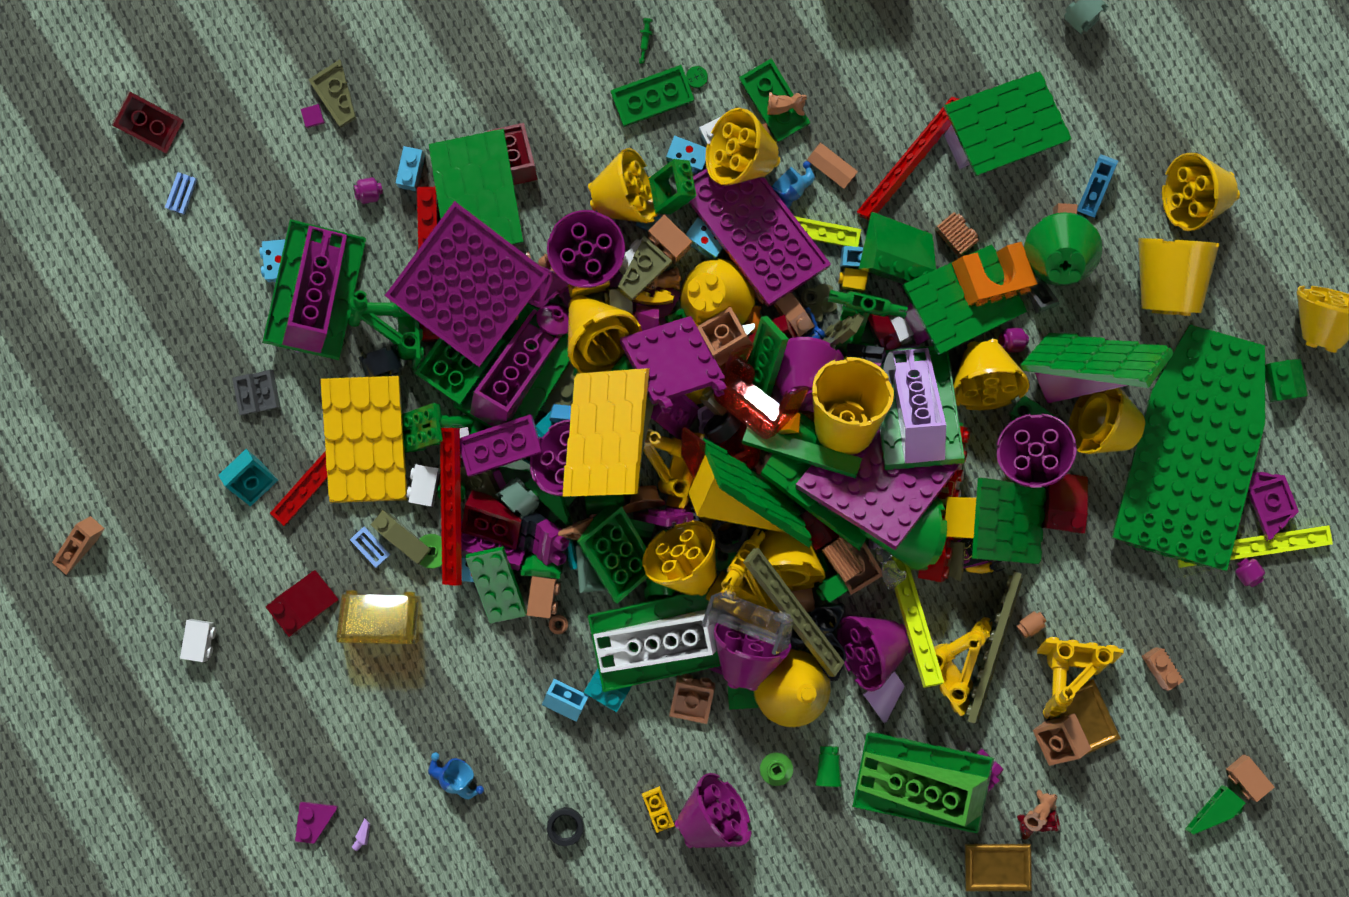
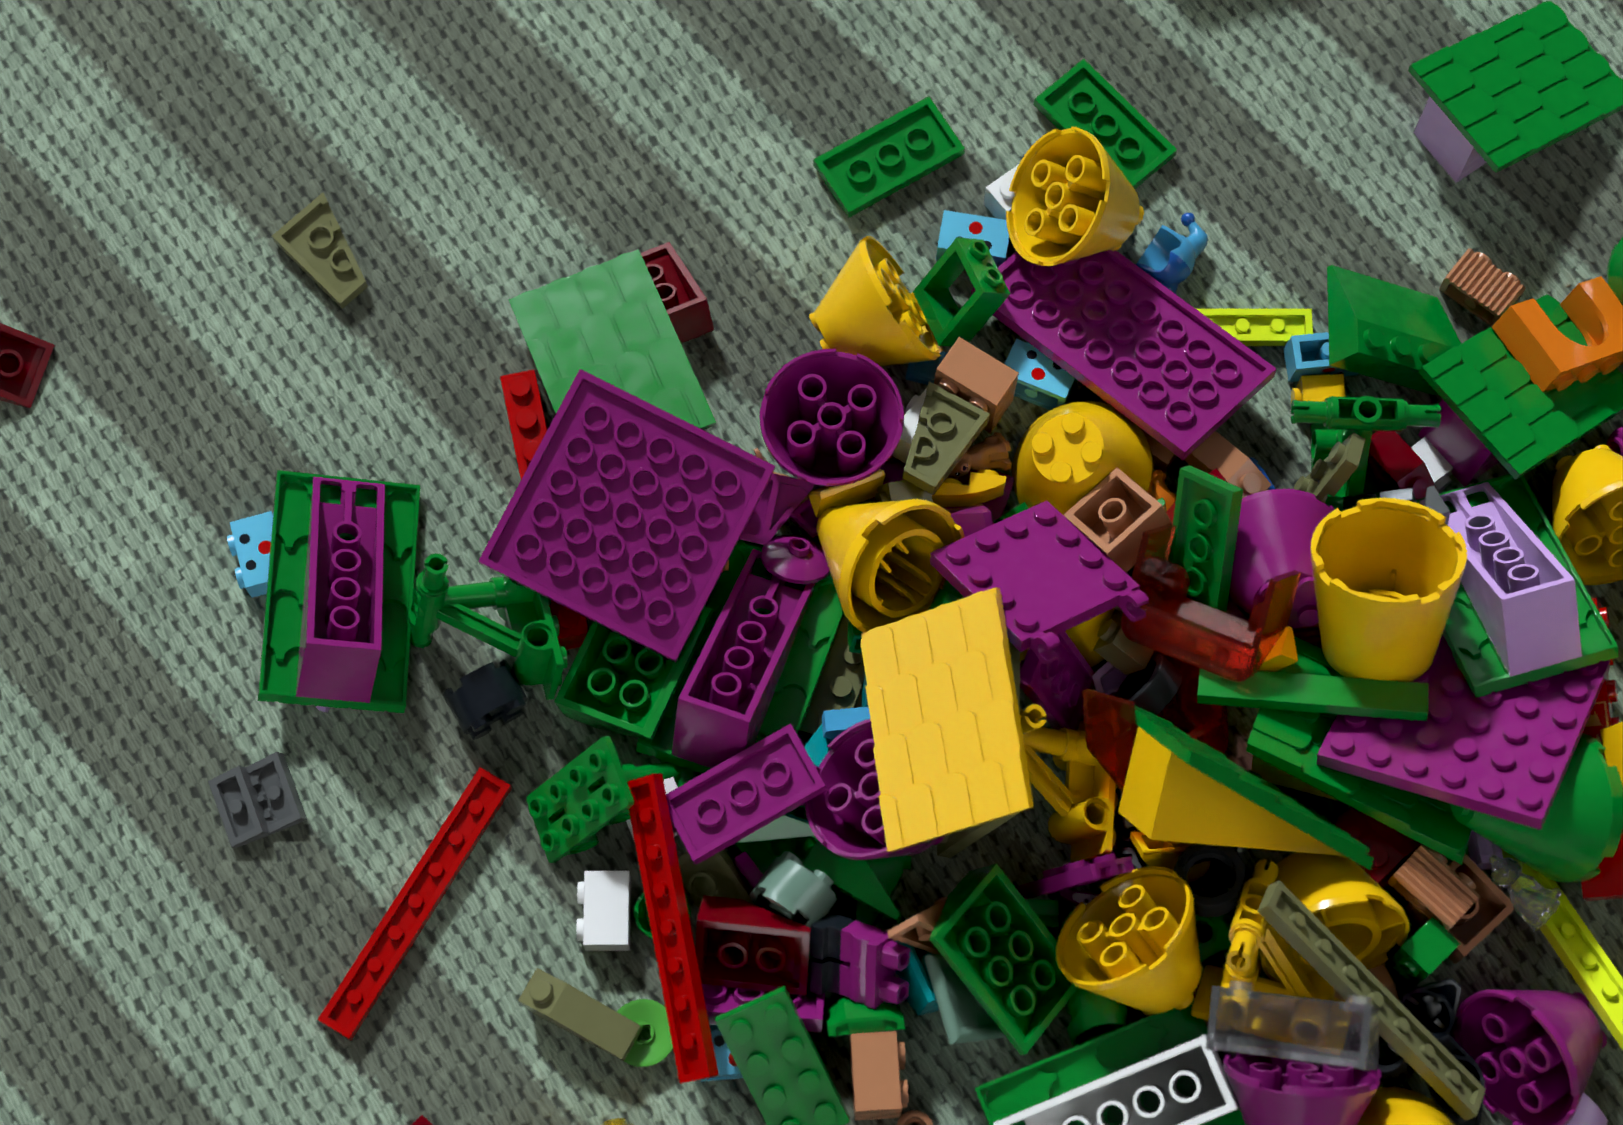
camera: 10 degrees left, 15 degrees down
(179, 176) = (52, 470): light blue tile -> none
(247, 477) = (265, 960): teal slope -> none
(312, 116) = (288, 297): magenta tile -> none
(364, 439) = (479, 843): yellow piece -> none
(367, 190) = (409, 403): magenta head -> none
(375, 541) = (548, 1069): light blue tile -> none
(410, 168) = (481, 351): medium azure brick -> none
(597, 503) = (940, 877): green plant -> none
(645, 38) = (855, 59): green piece -> none
(645, 498) = (1030, 854): nougat piece -> none
(697, 76) = (960, 113): green piece -> none
(783, 103) = (1123, 123): nougat animal -> none
(820, 303) = (1271, 446): olive plate -> none
(832, 165) = (1233, 214): nougat piece -> none
(906, 164) = (1364, 185): red plate -> none

